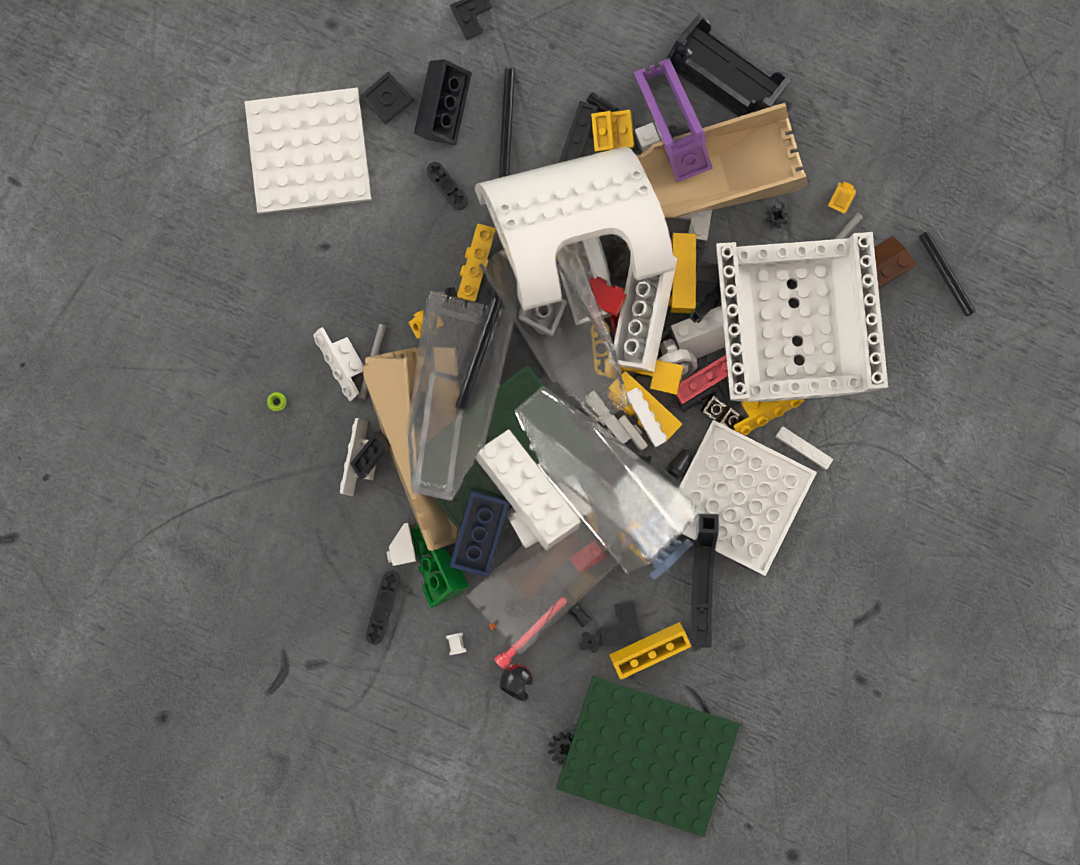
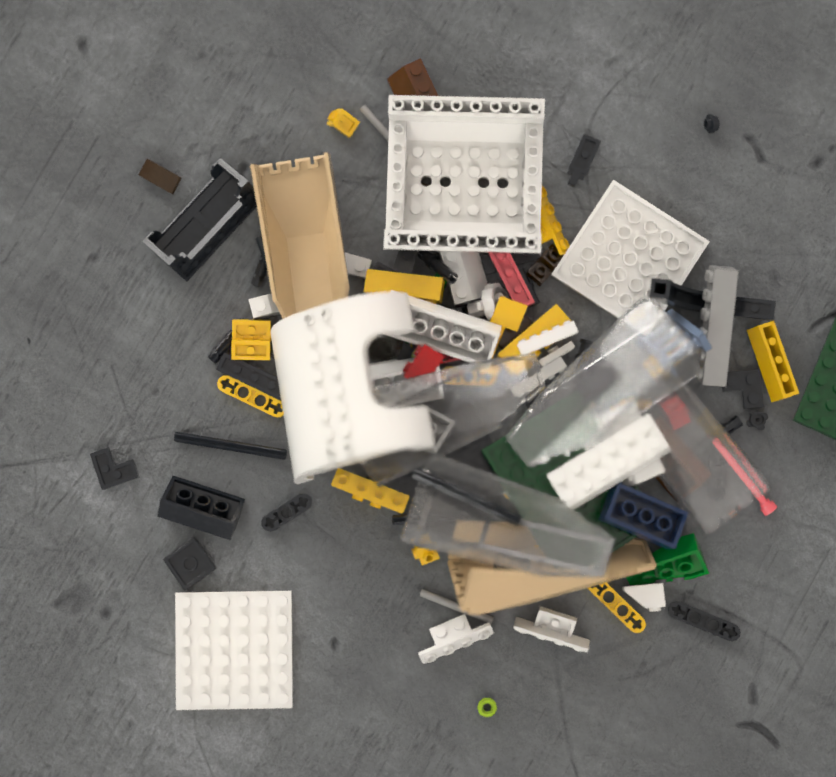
camera: 75 degrees left, 0 degrees up
(370, 454) = (555, 616): black plate -> none
(387, 515) = (617, 601): none -> yellow beam
(456, 643) = (747, 551): white bush -> none
(514, 679) = (788, 496): black helmet -> none
(558, 139) = (250, 399): none -> yellow beam
(679, 464) = (591, 312): black cone -> none
(683, 588) = (717, 324): none -> light grey brick
(688, 154) = (287, 266): medium lavender piece -> none
(765, 24) = (160, 176): none -> dark brown slope
(779, 211) = (355, 183): black gear -> none
(804, 448) = (587, 189): white piece -> none
(834, 440) = (582, 159): none -> black hinge
(886, 566) = (711, 123): none -> black plate
(947, 273) = (430, 30): black axle -> none

